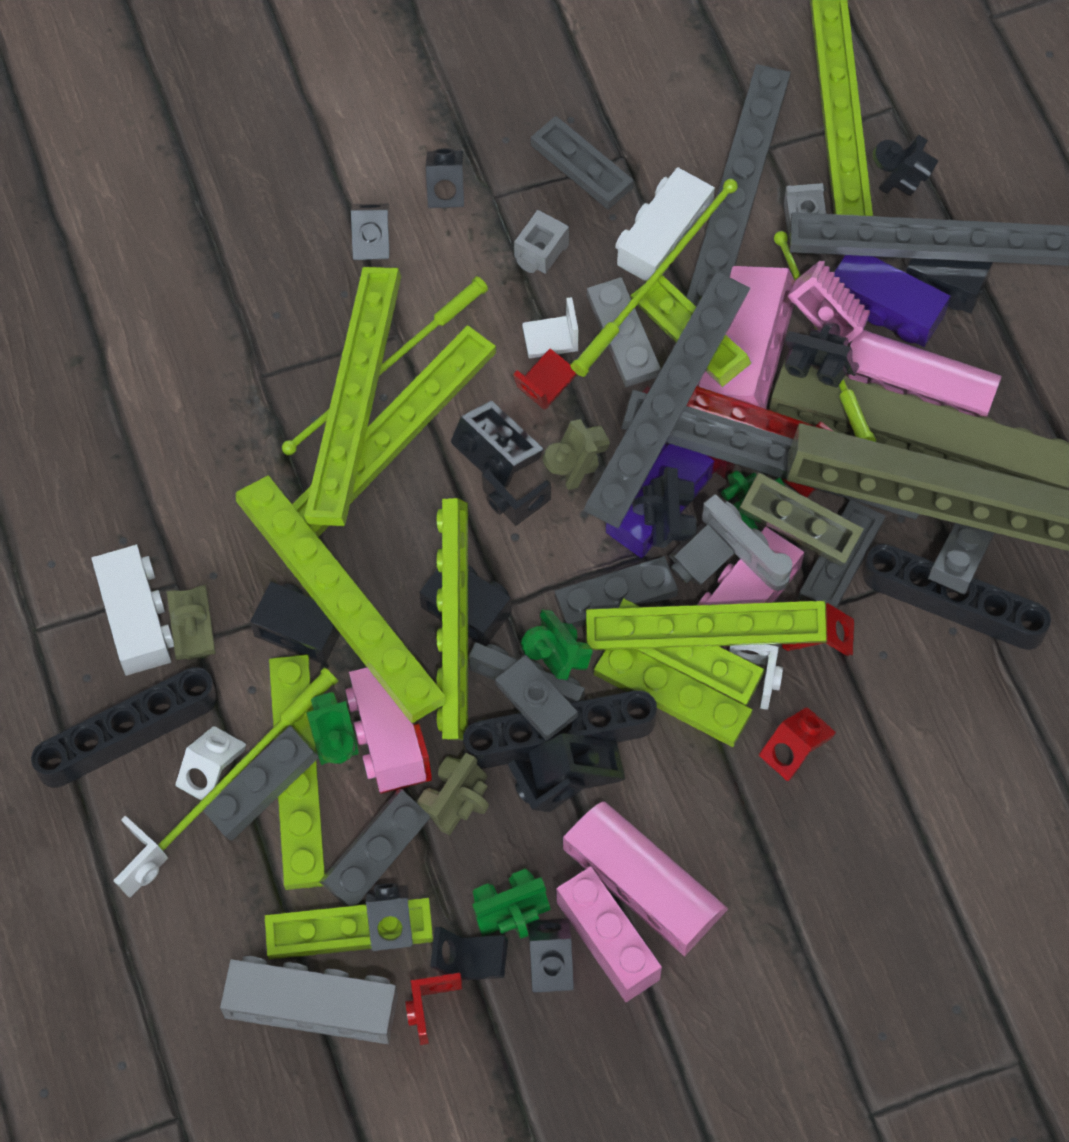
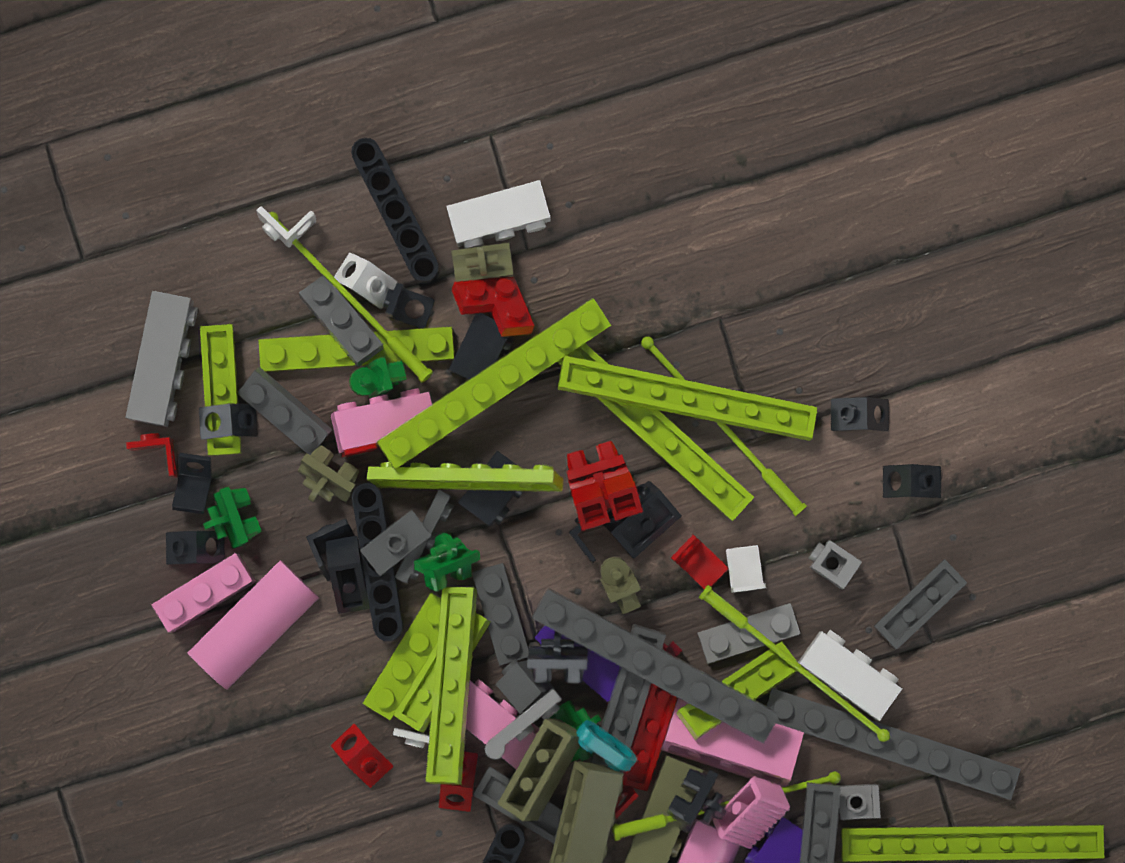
camera: 90 degrees right, 20 degrees up
(232, 602) = (499, 297): none -> red plate
(240, 721) = (397, 300): none -> black bracket
(461, 470) = (602, 487): none -> red hips
(776, 436) = (596, 739): none -> teal plate

